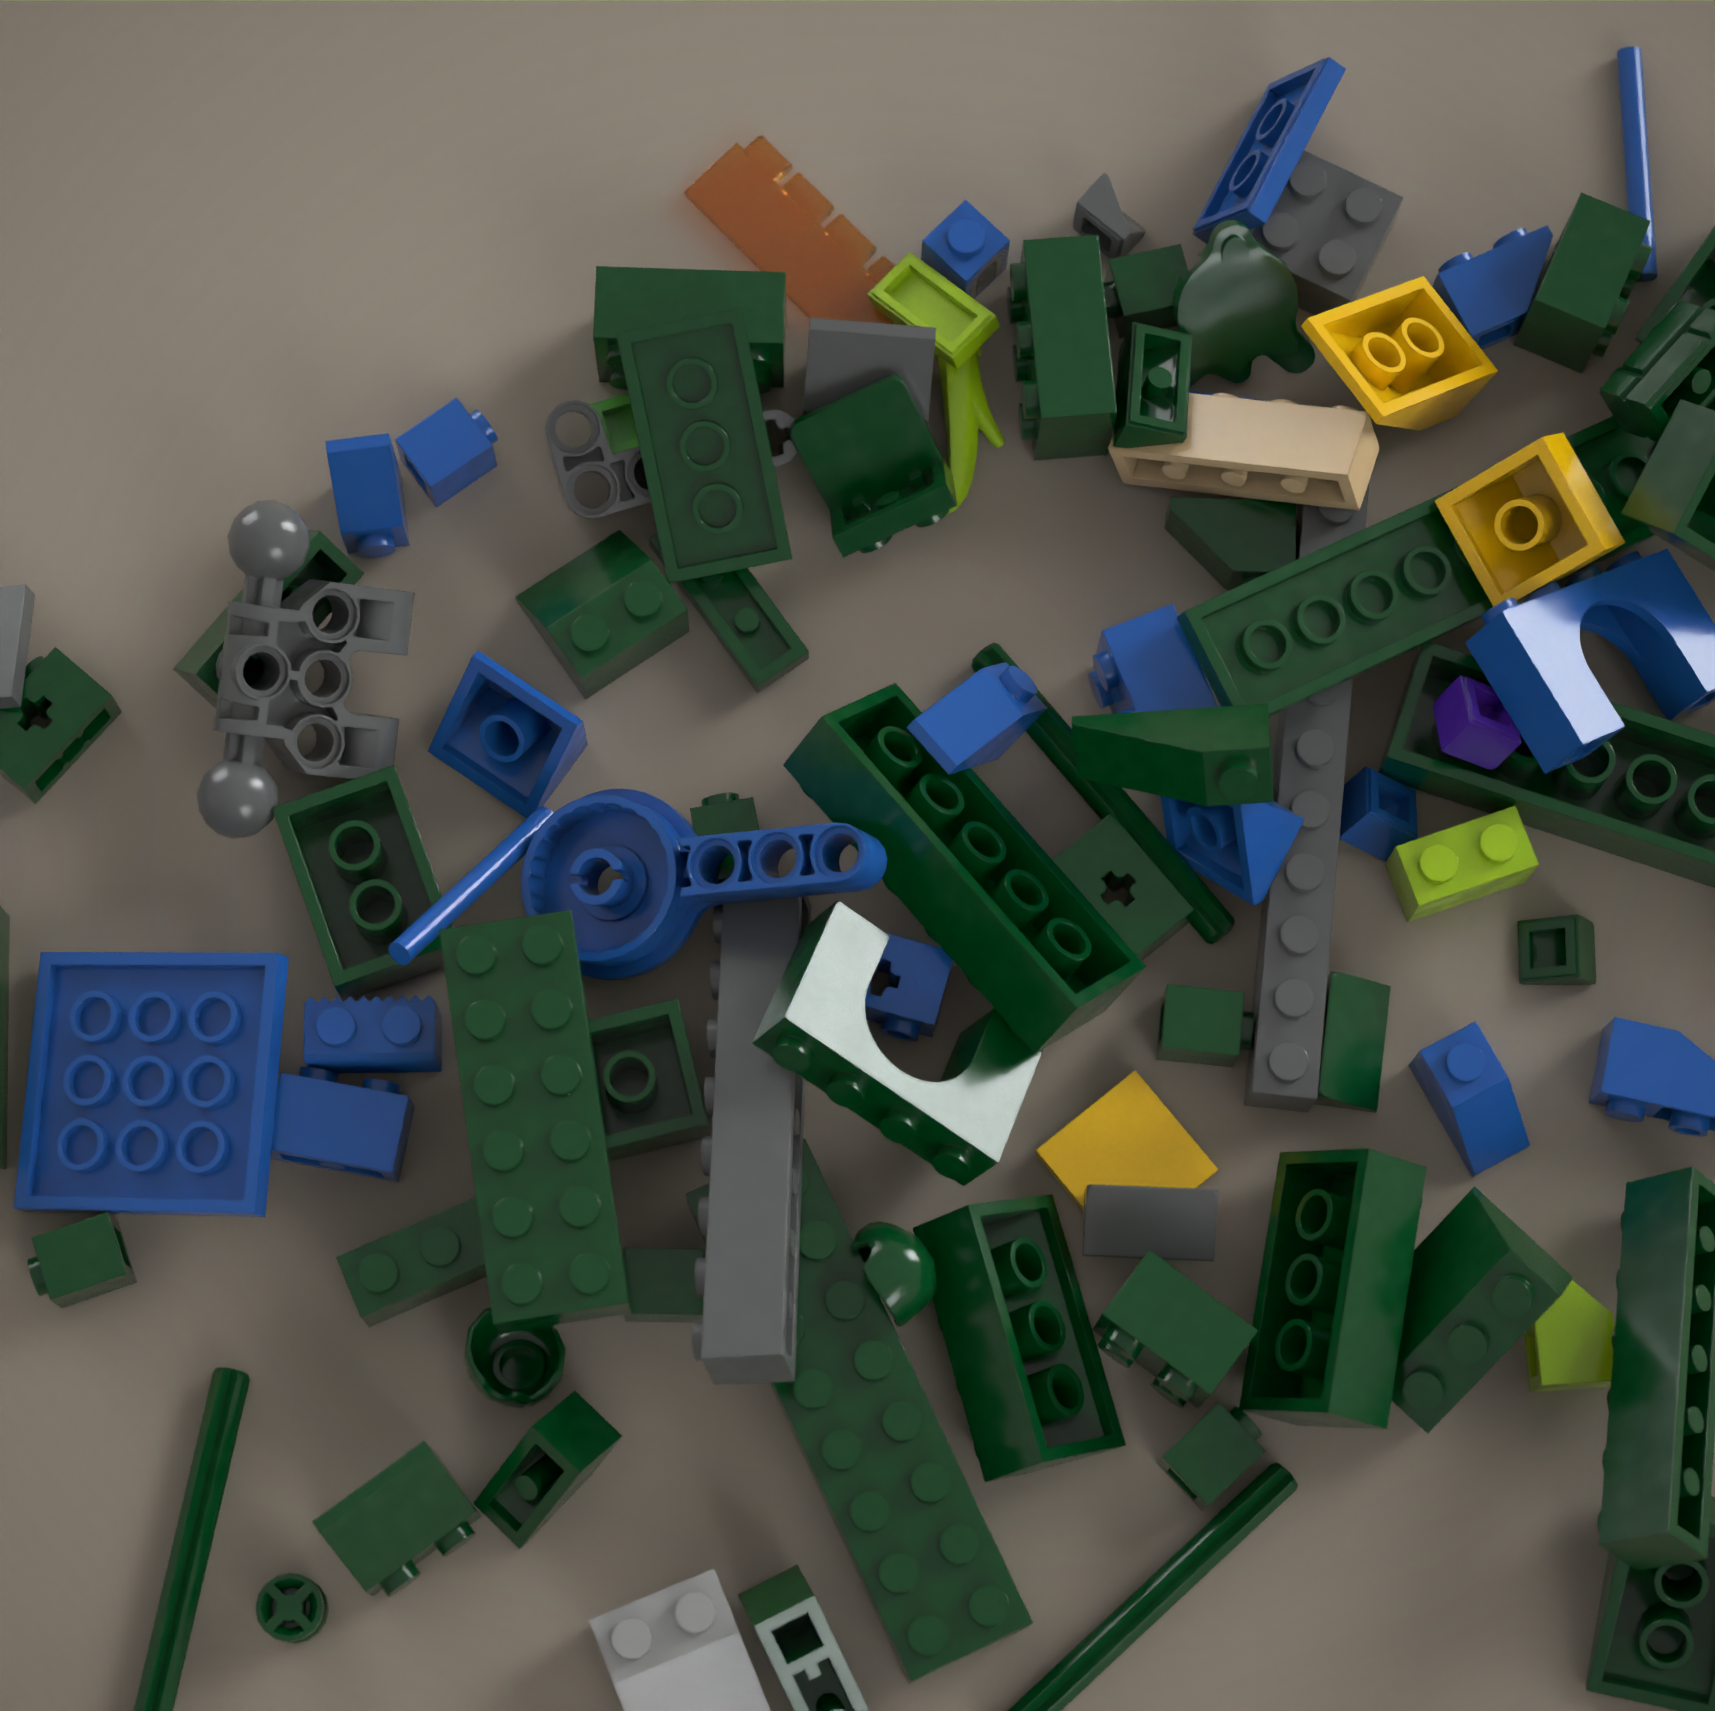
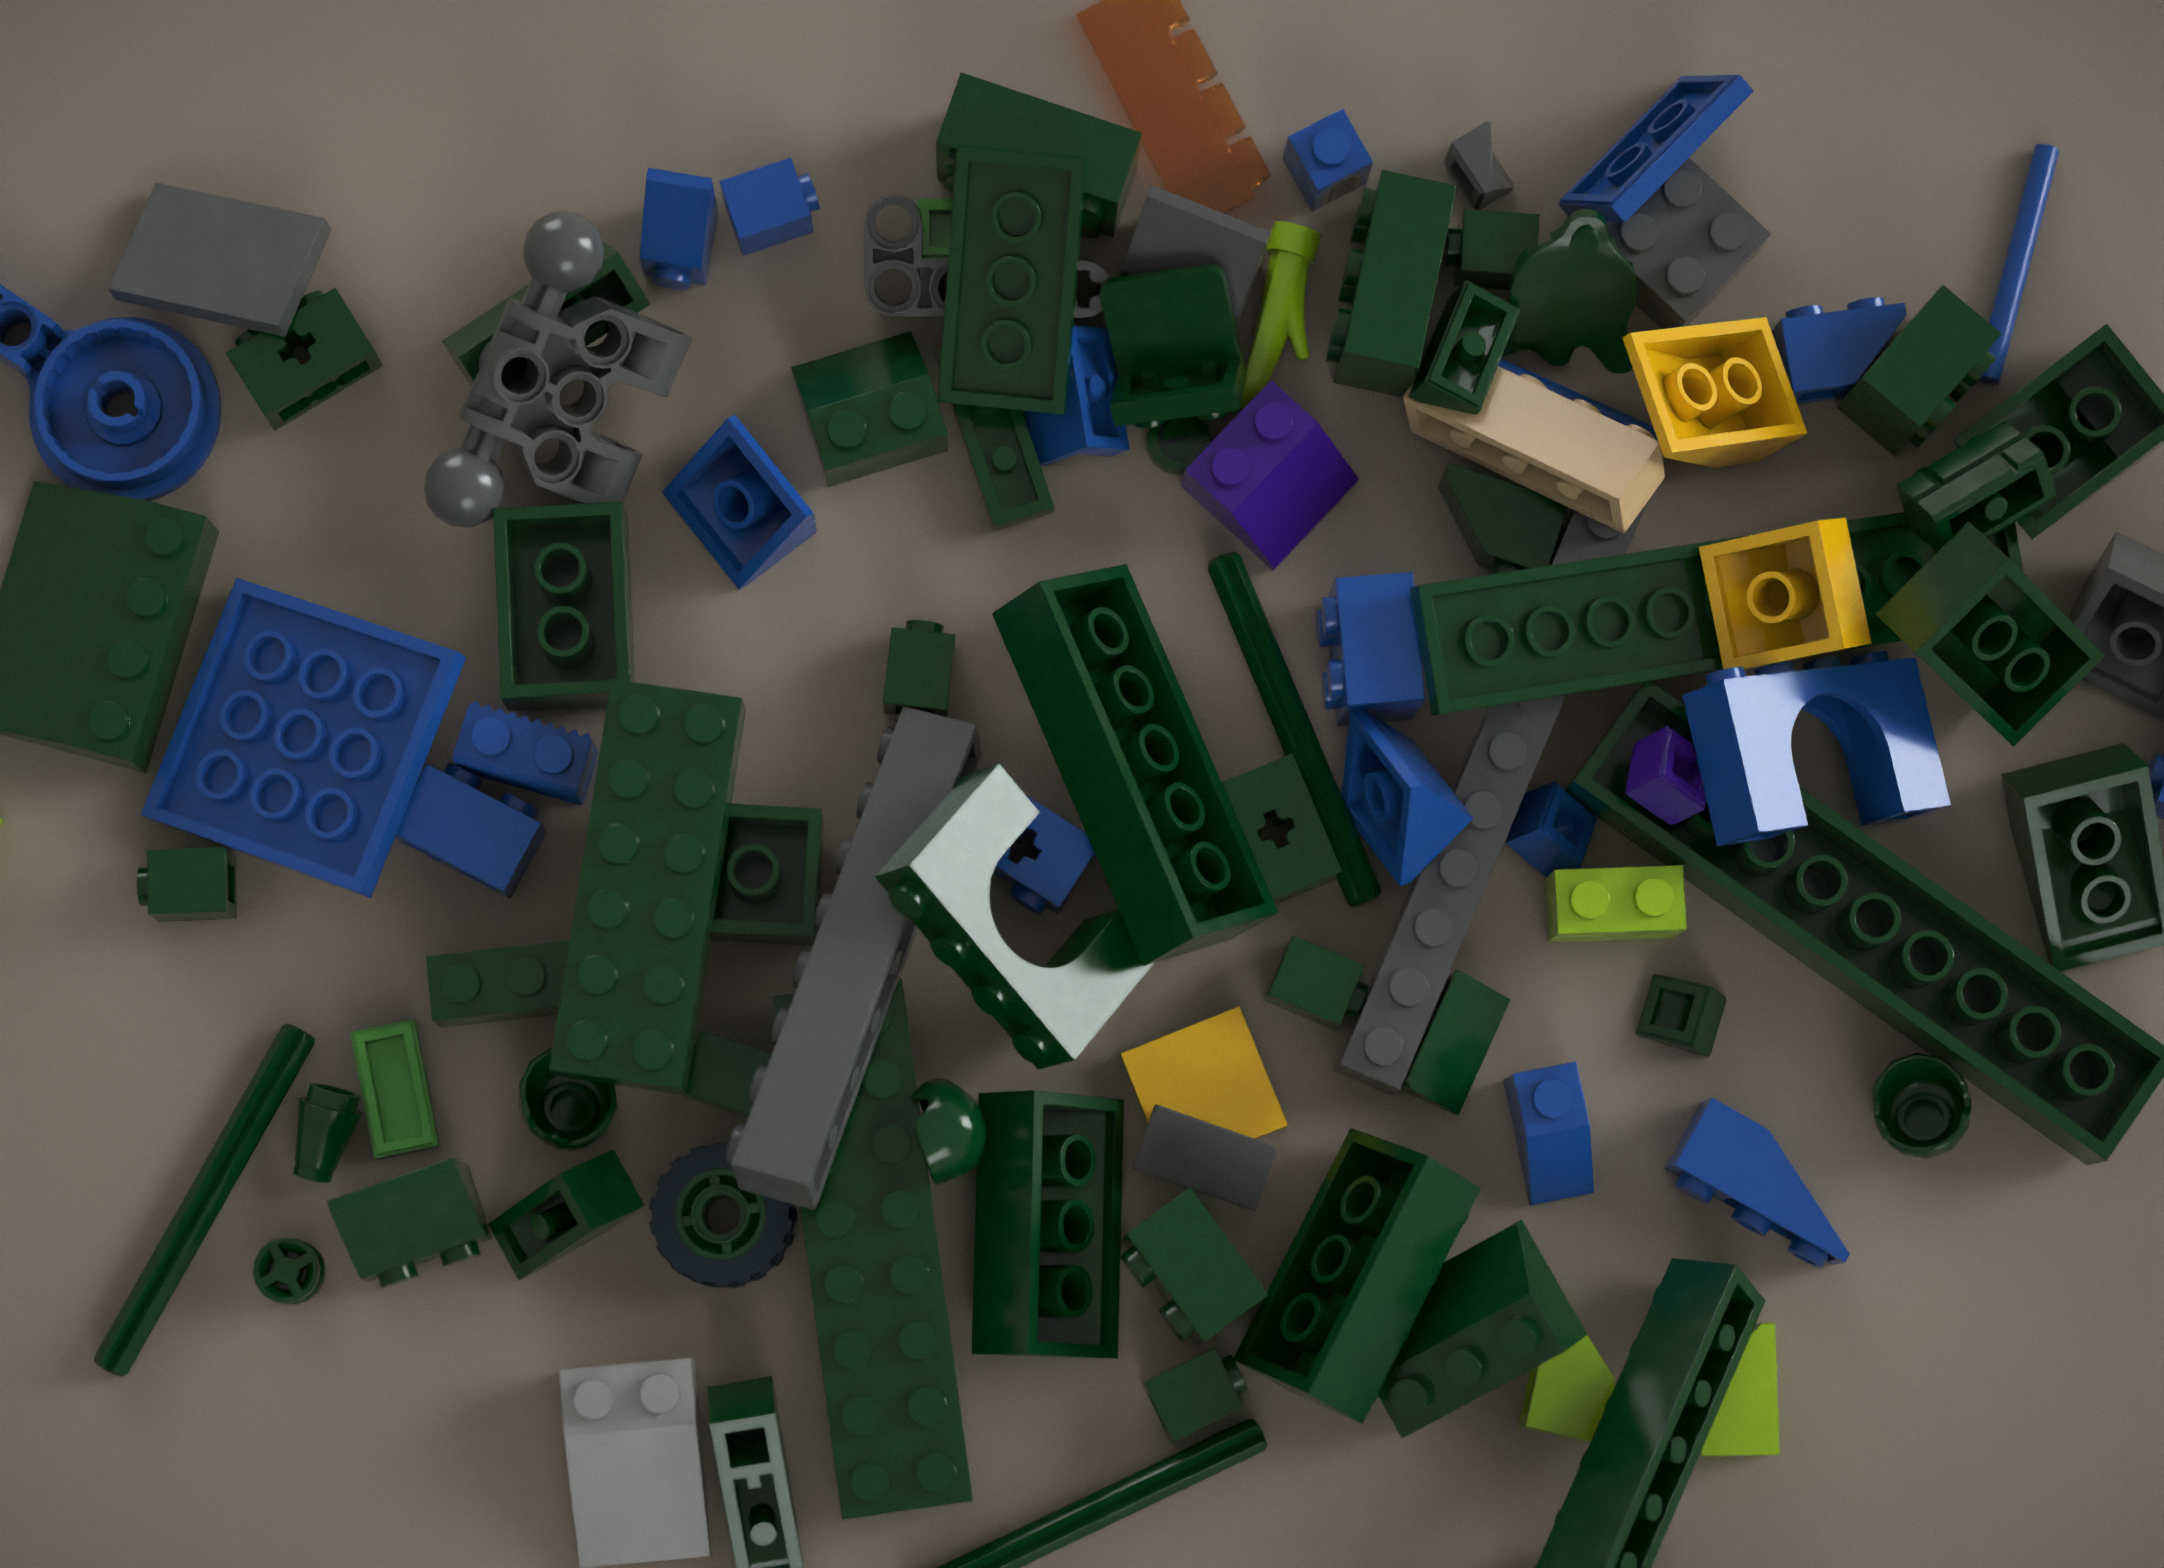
camera: 10 degrees right, 5 degrees up
(285, 1460) = (324, 1130): none -> dark green cone
(342, 1400) = (395, 1089): none -> bright green tile
(467, 890) = (661, 640): blue bar -> none
(670, 874) = (849, 686): blue beam -> none
(707, 1465) = (684, 1230): none -> black wheel
(816, 560) = (1088, 421): none -> blue panel
(907, 559) = (1177, 443): none -> dark green tile
(924, 298) = (1278, 202): lime tile -> none
(979, 718) = (1194, 624): blue slope -> none
(1004, 561) = (1270, 475): none -> dark purple slope
(1181, 753) = (1374, 724): dark green slope -> none

